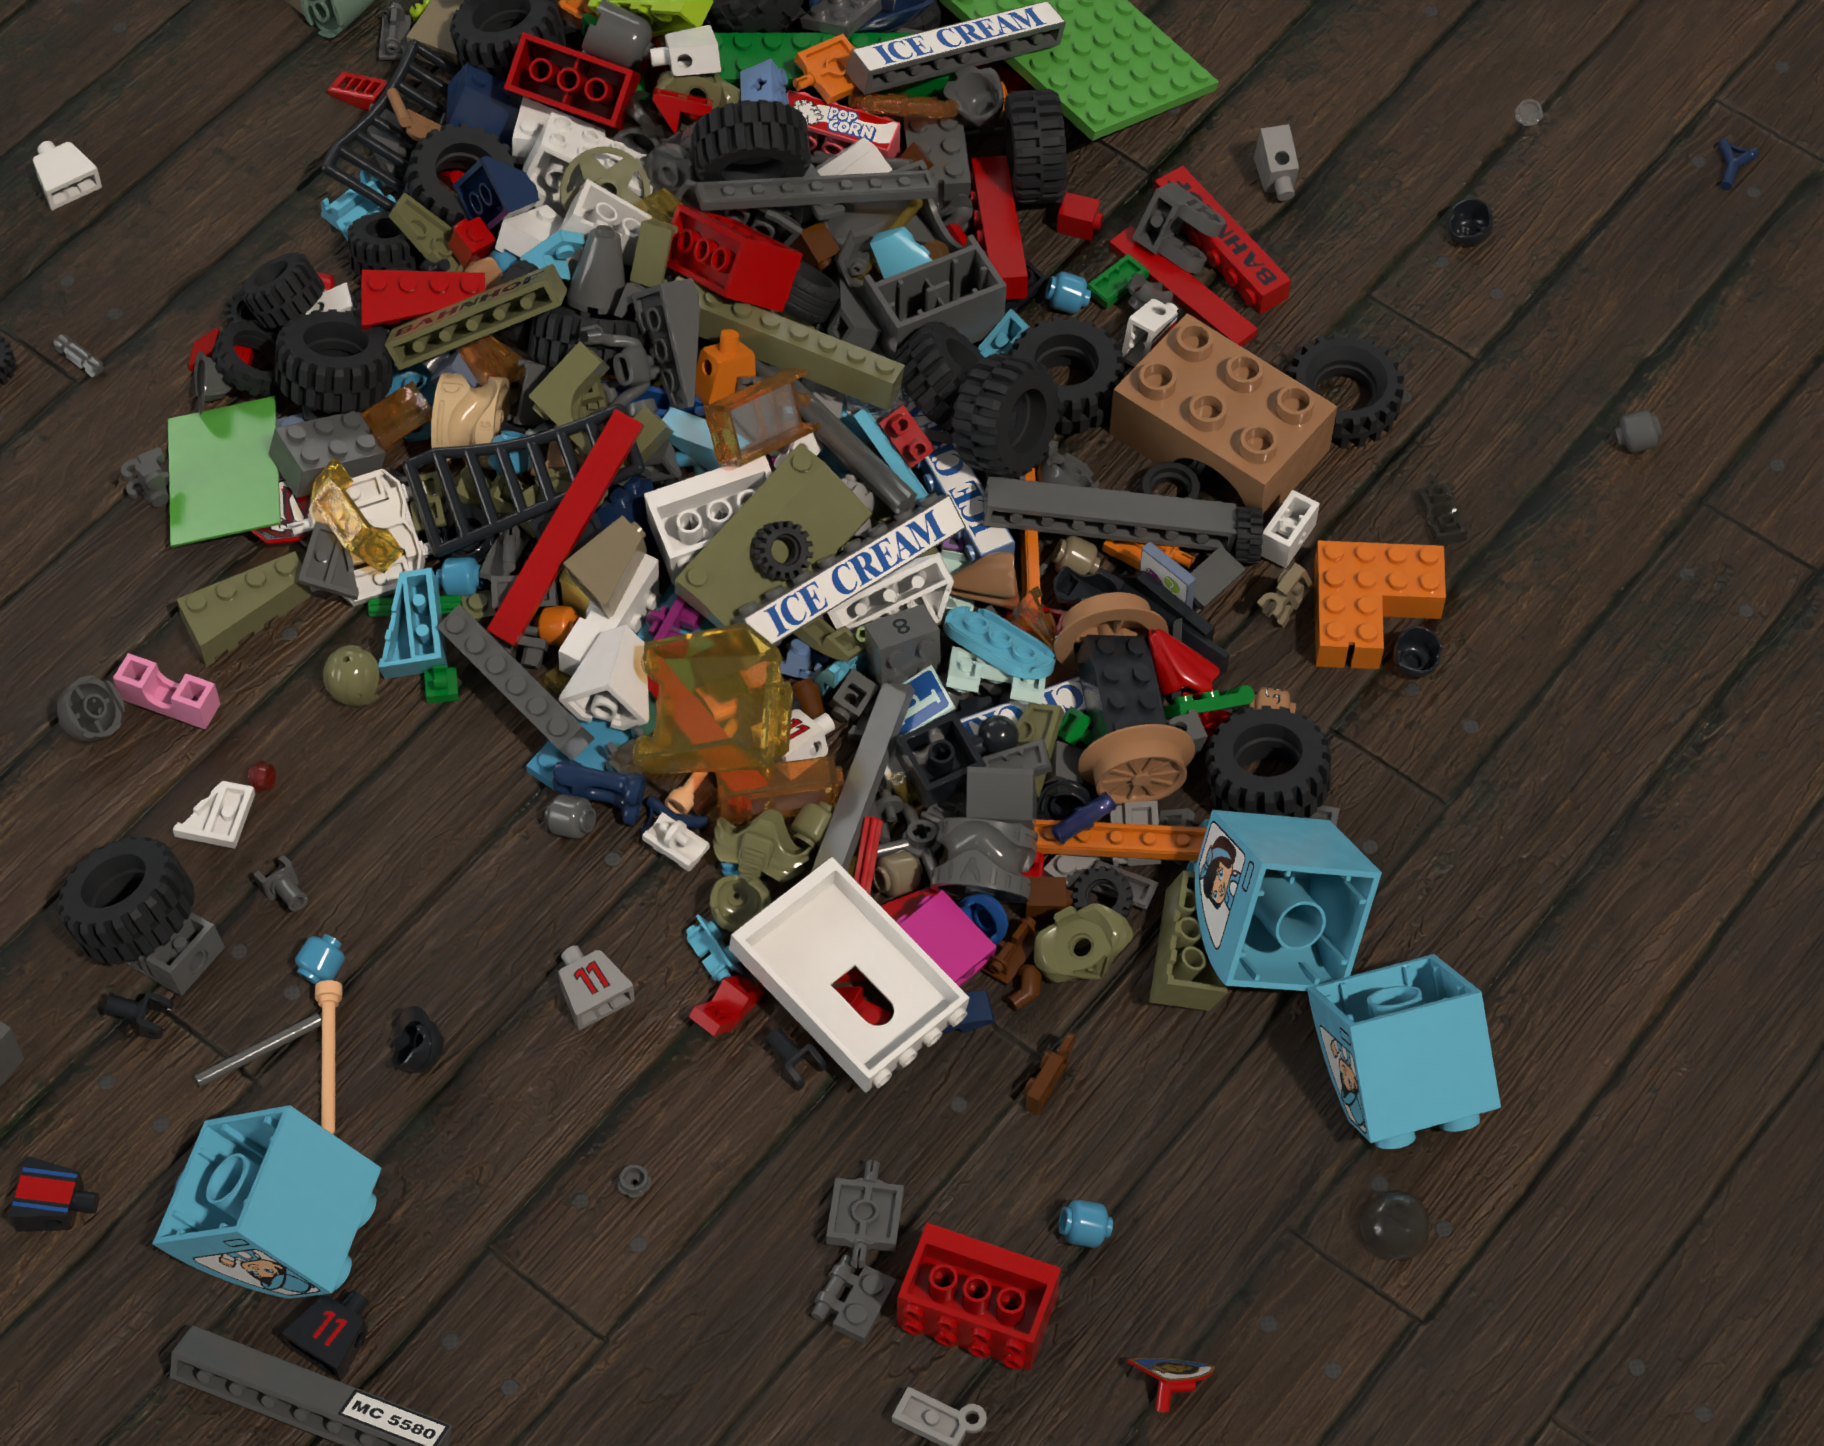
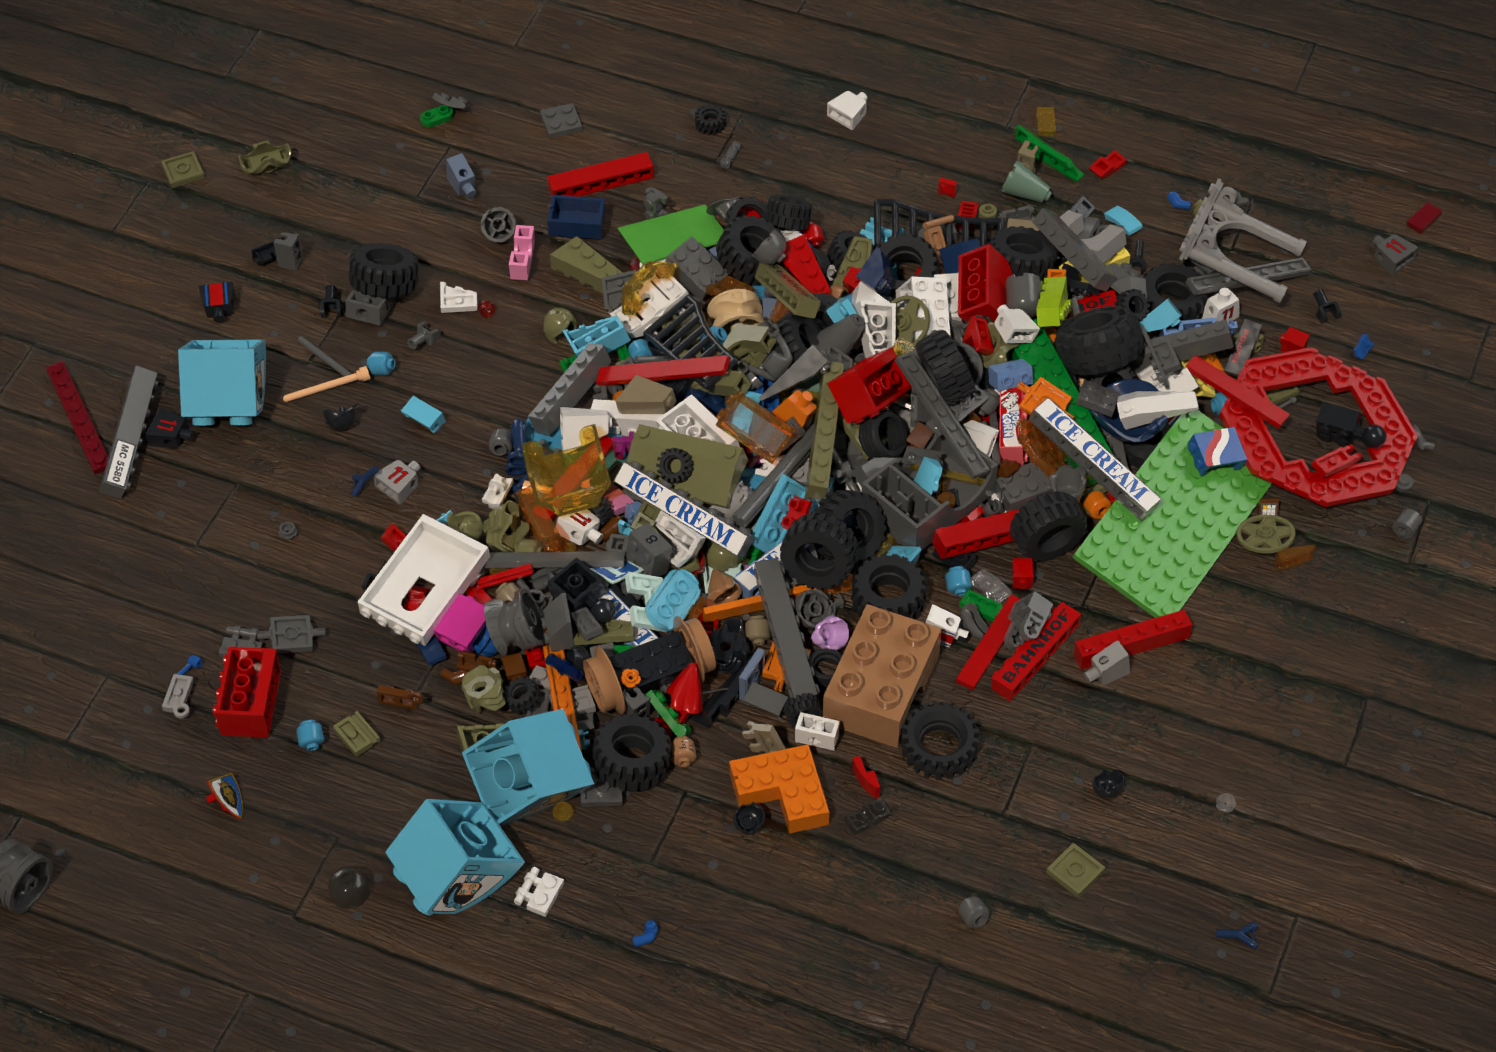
camera: 75 degrees right, 5 degrees down
(40, 544) = (602, 176): none -> red brick
(124, 594) = (576, 217): none -> dark blue piece
(296, 96) = (947, 187): none -> red tile
(375, 318) = (771, 249): none -> dark grey cylinder
(383, 61) = (988, 211): none -> olive brick
(461, 917) = (424, 414): none -> medium azure hinge
(573, 1038) = (360, 480): none -> dark blue piece
(652, 252) = (861, 349): olive hinge -> none
(868, 1383) = (193, 661): none -> blue hand
(1088, 257) = (990, 585): none -> clear slope
(1099, 1155) = (356, 733): none -> olive plate
(1119, 466) = (831, 633): none -> lavender hair
(1160, 715) = (630, 683): none -> orange plate
(1238, 128) = (1136, 637): none -> red brick
(1390, 493) = (867, 779): none -> red slope
(1473, 954) = (543, 896): none -> white plate
(1580, 835) = (648, 935): none -> blue arm
(1591, 304) = (1075, 870): none -> olive tile

